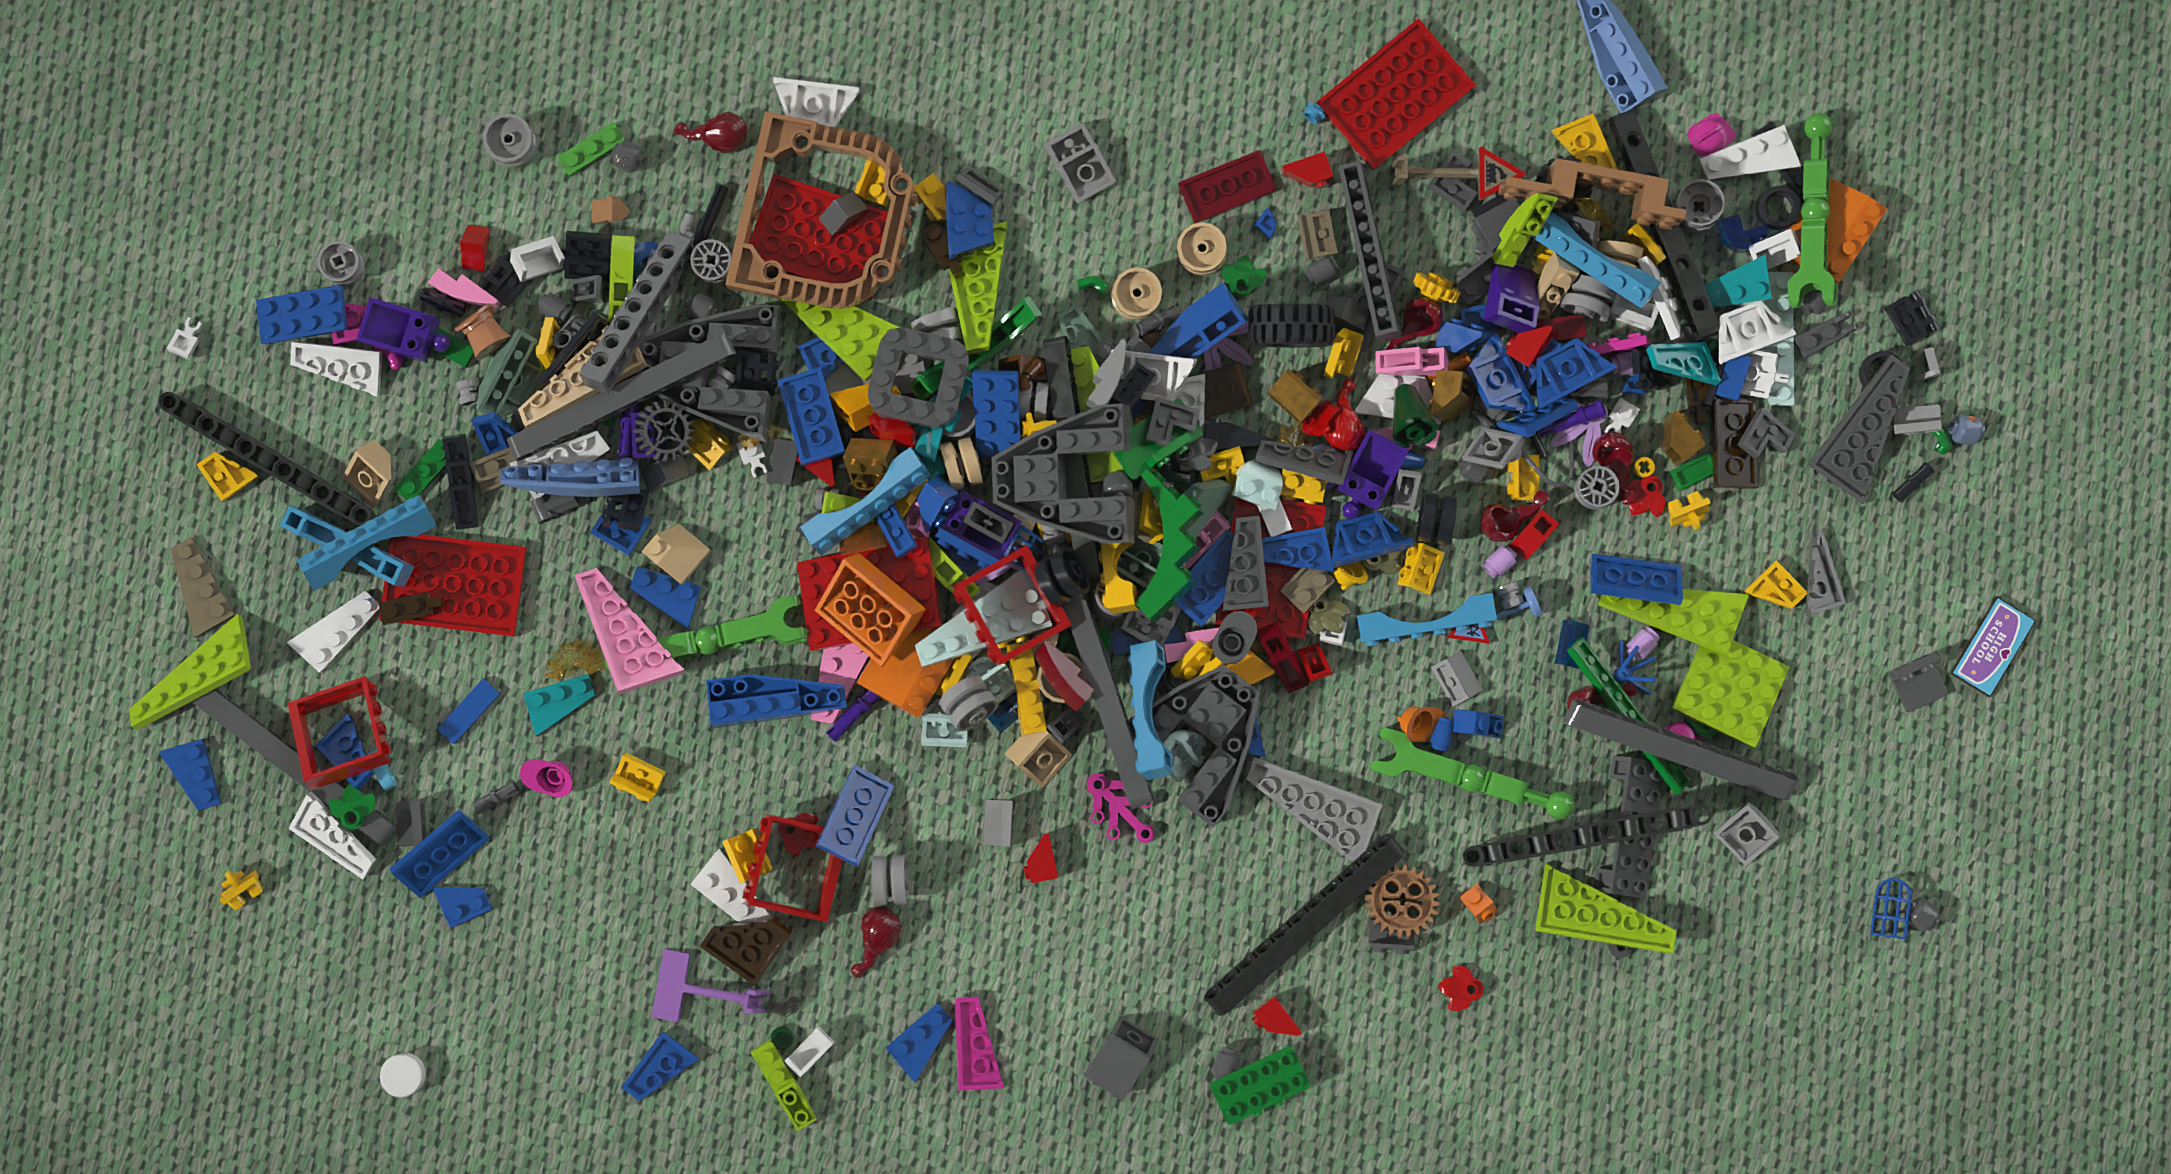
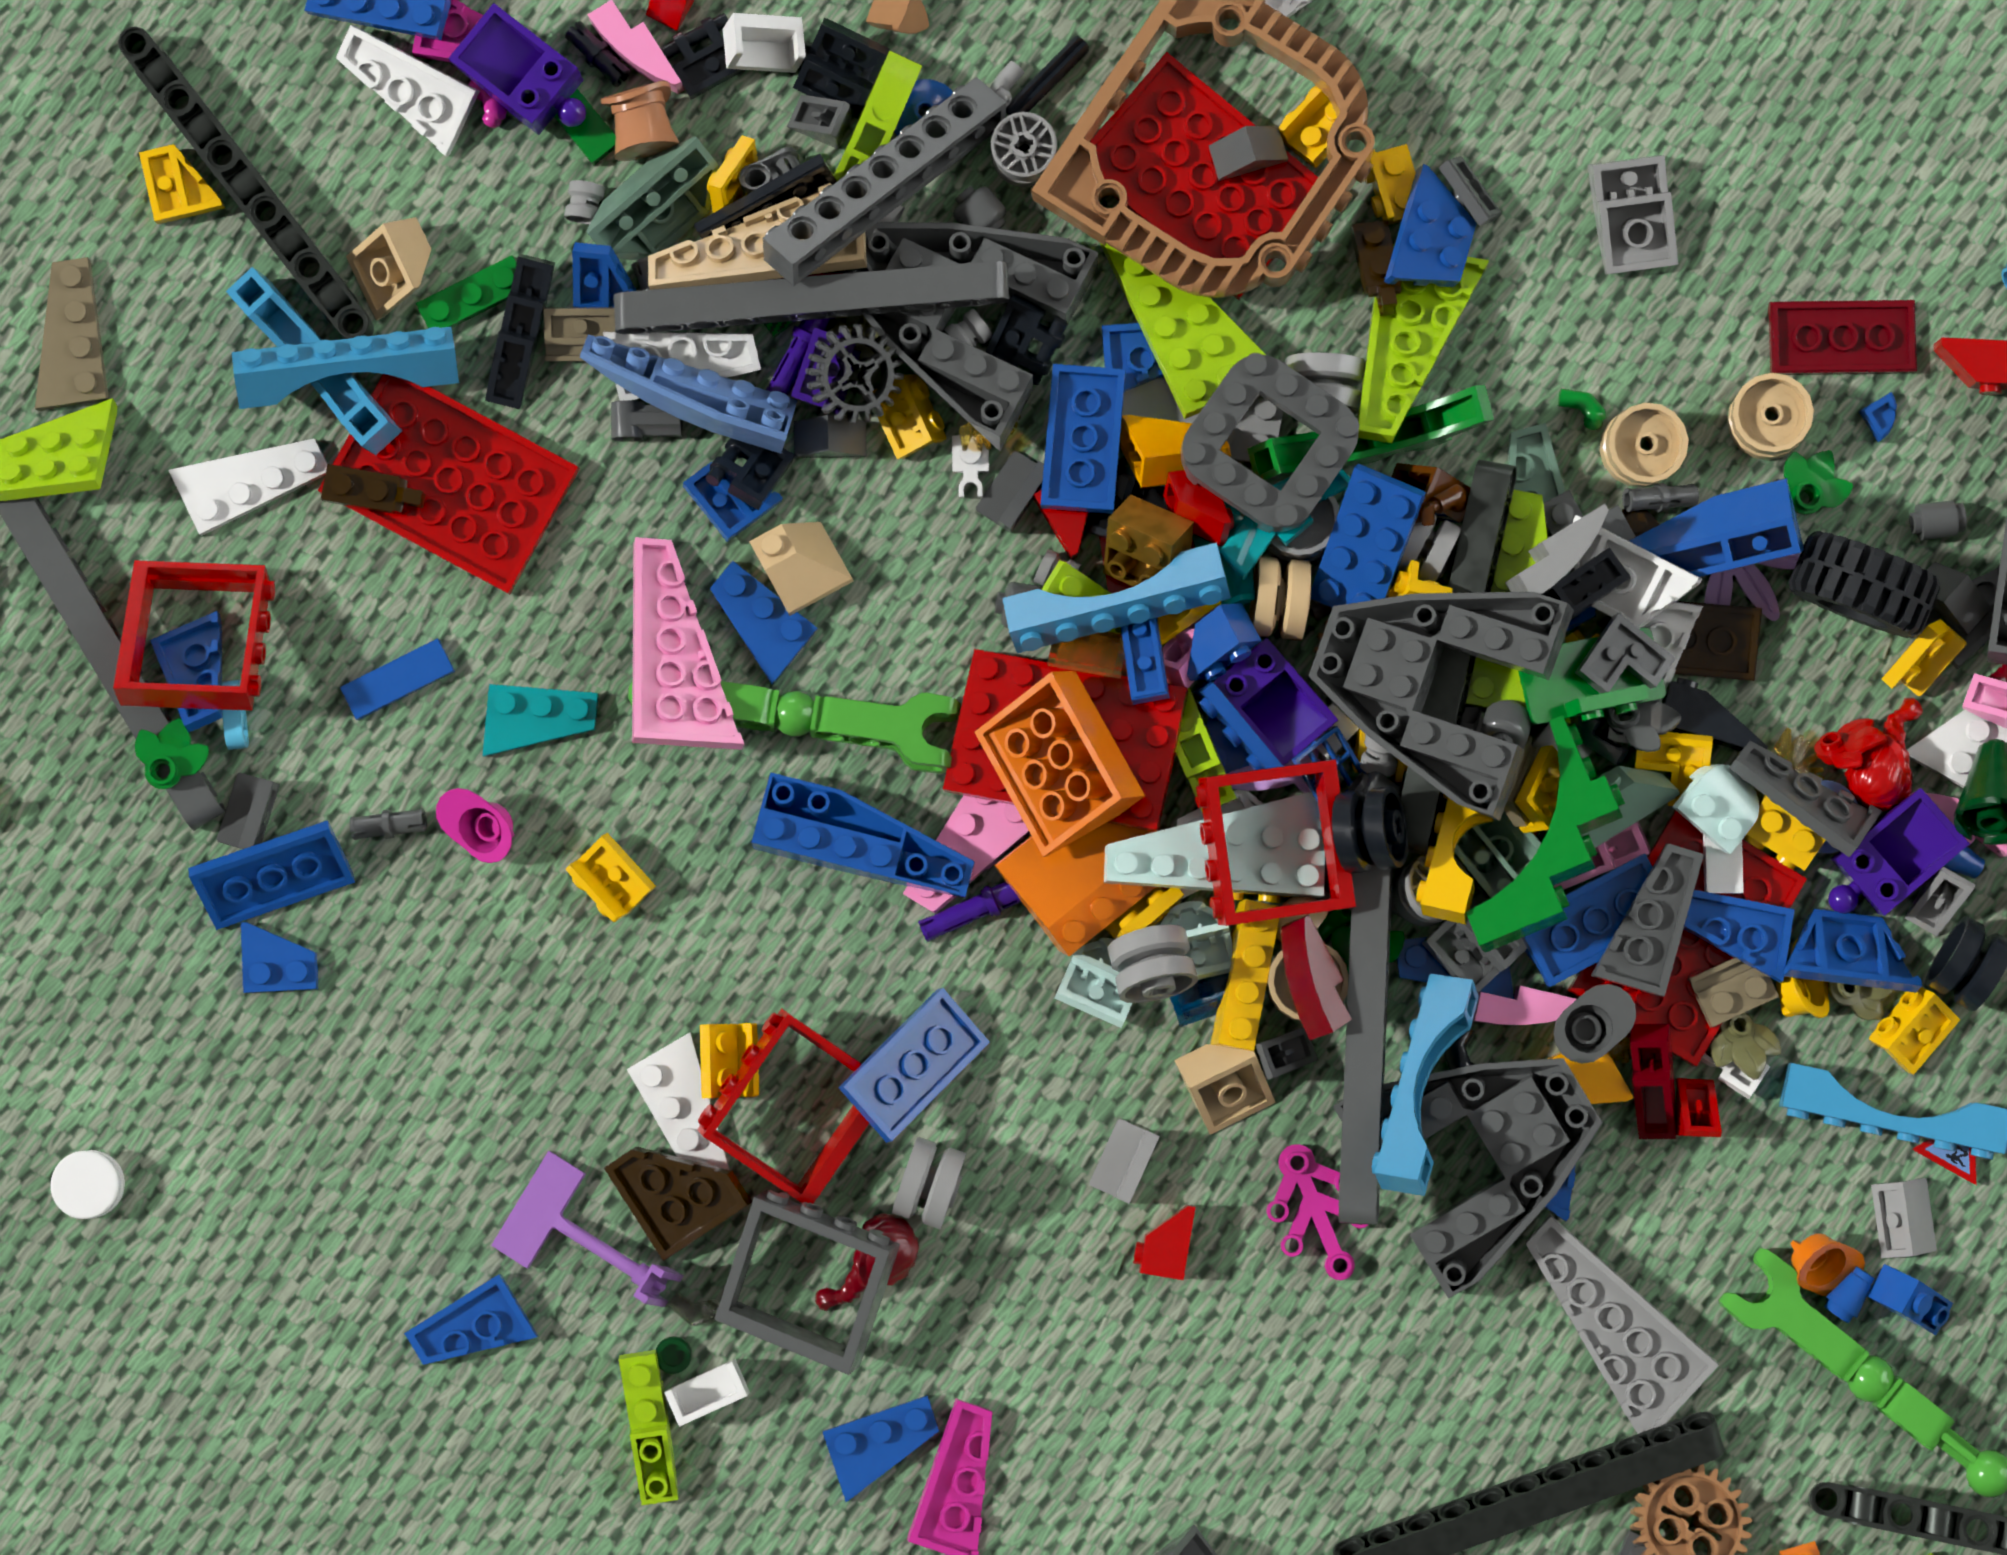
camera: 25 degrees right, 0 degrees up
(324, 831) = (118, 781): white wing -> none
(555, 307) = (762, 125): dark grey brick -> none
(574, 657) = (585, 660): clear yellow hair -> none
(799, 837) = (816, 1063): red plate -> none
(835, 999) = (783, 1333): none -> dark grey window
(987, 523) = (1287, 703): dark grey slope -> none
(1186, 751) = (1454, 1166): light aqua slope -> none
(1196, 661) = (1521, 1037): yellow bracket -> none
(1295, 395) = (1825, 692): pearl gold slope -> none
(1317, 235) = (1951, 463): dark tan plate -> none

